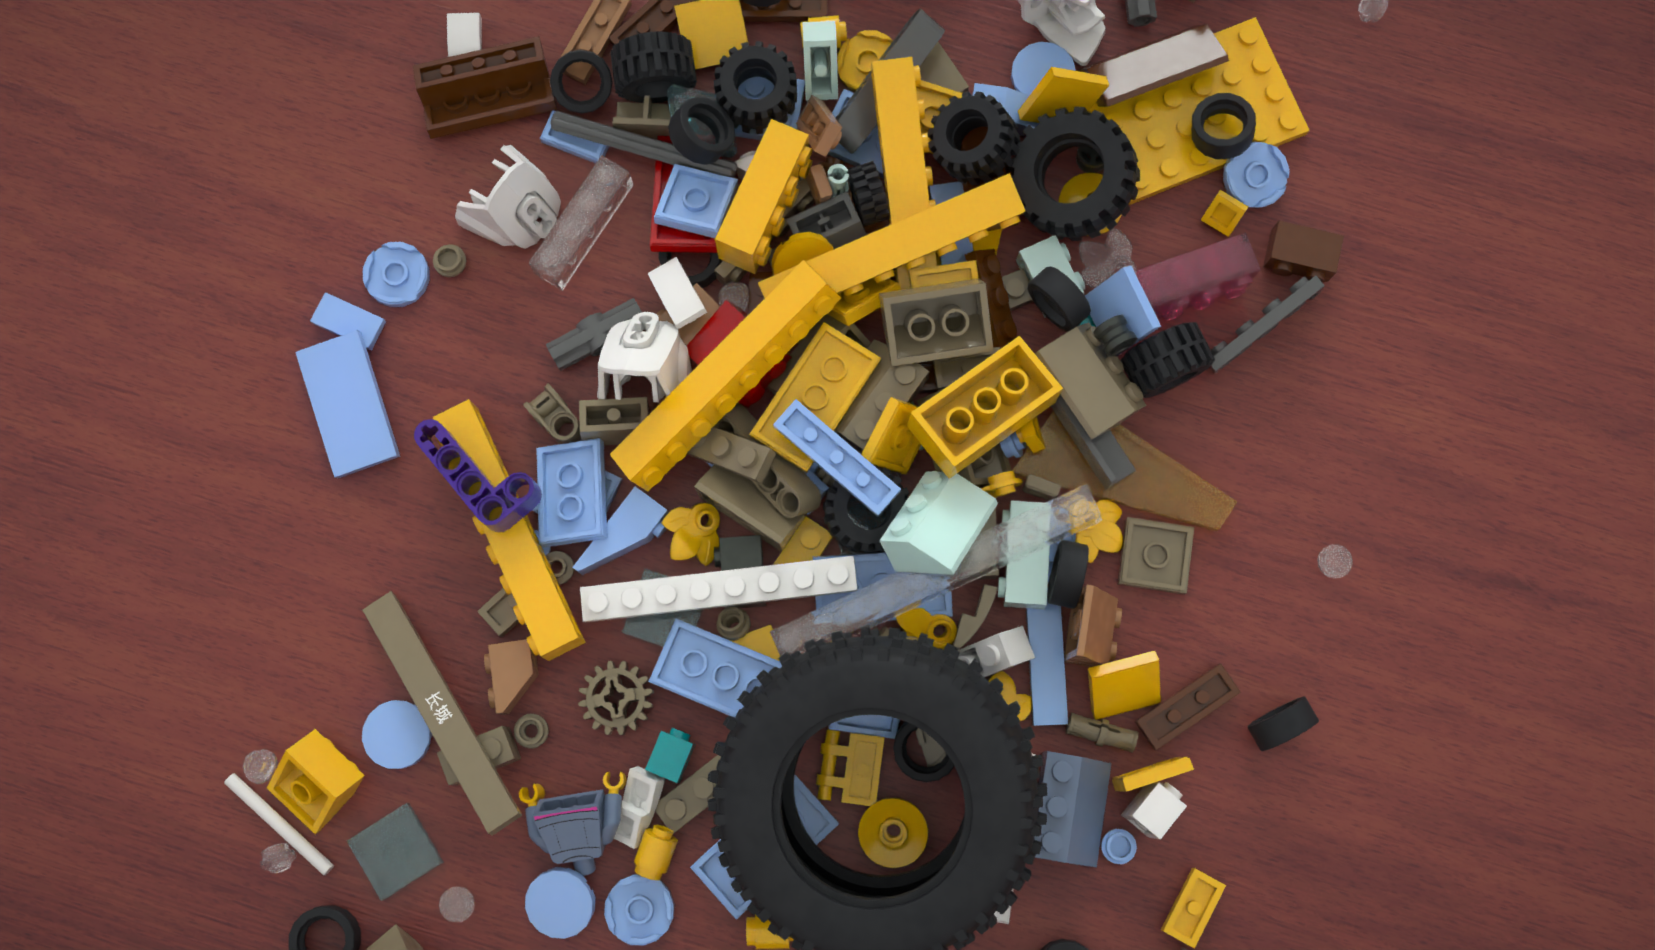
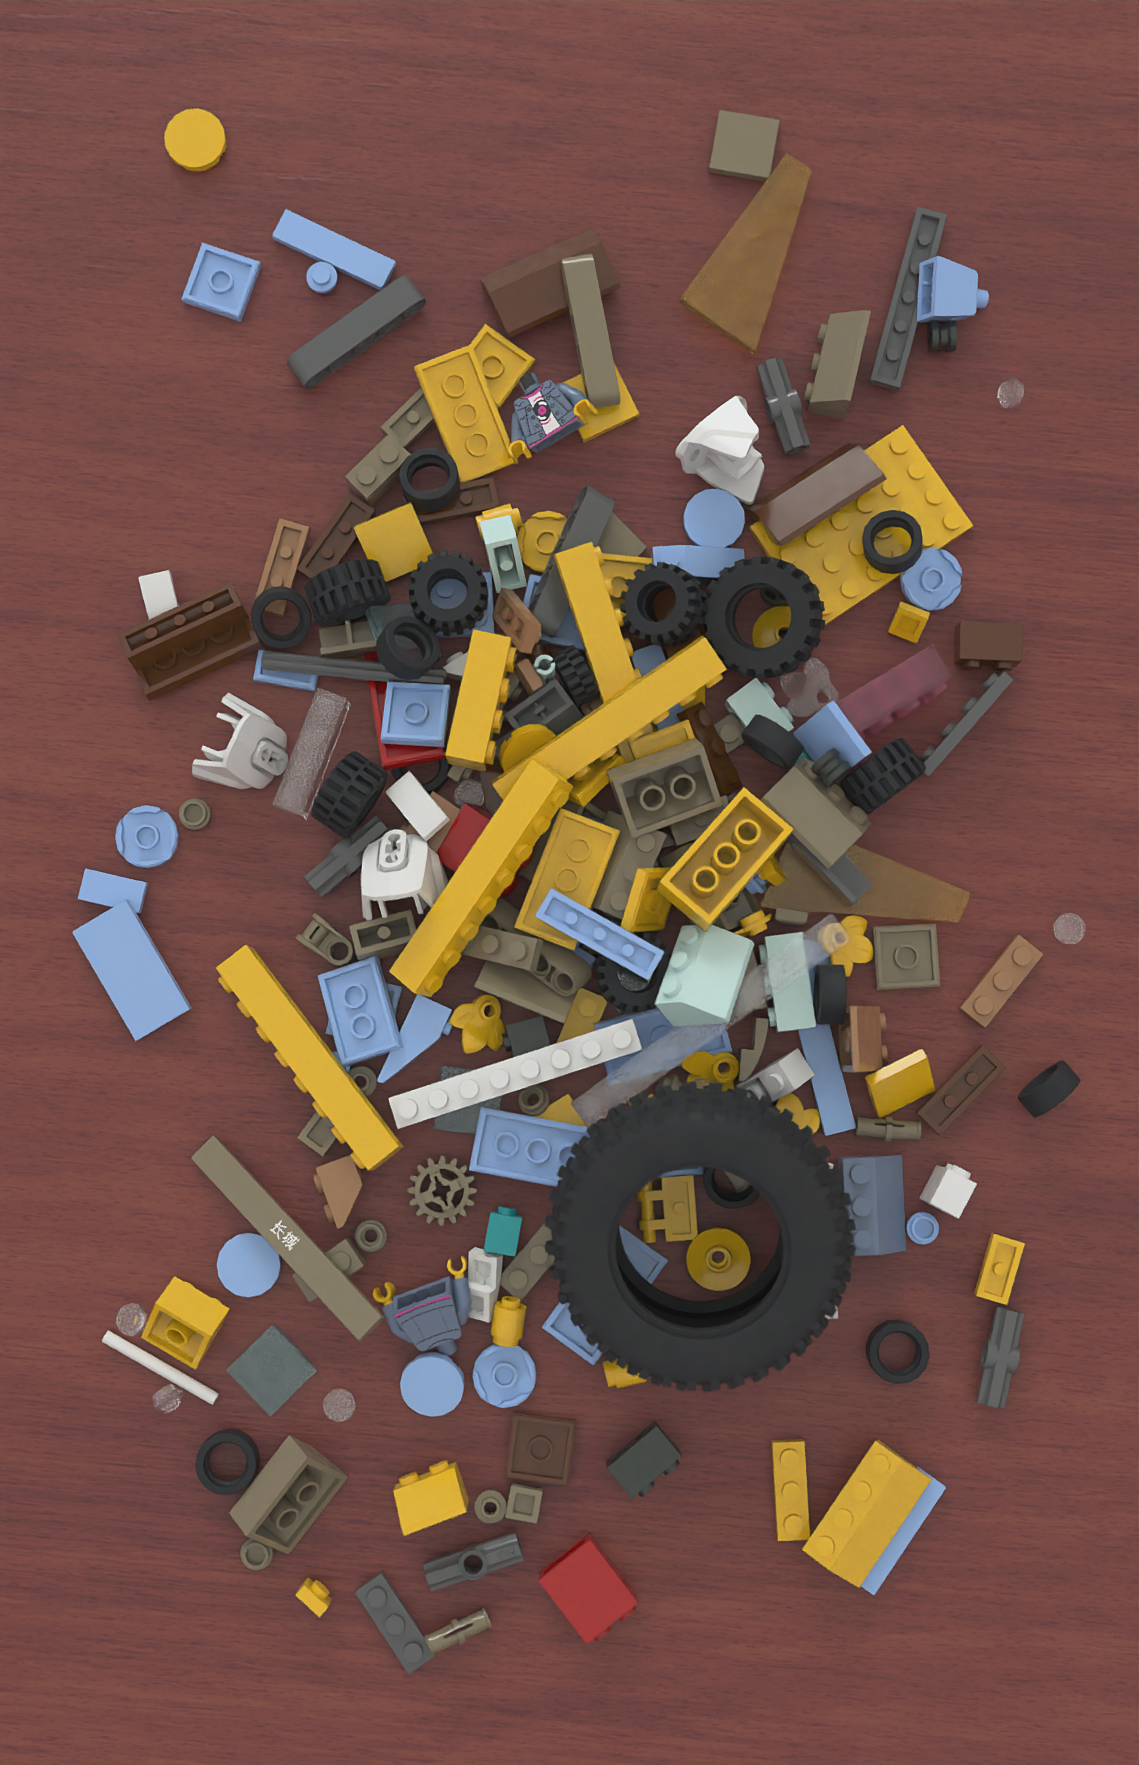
camera: 15 degrees left, 5 degrees up
(469, 473) = (264, 1014): dark purple beam -> none
(609, 267) = (349, 794): none -> black tyre
(1062, 89) = (738, 542): yellow tile -> none
(1152, 773) = (940, 1159): yellow tile -> none
(1251, 601) = (1000, 981): none -> medium nougat plate

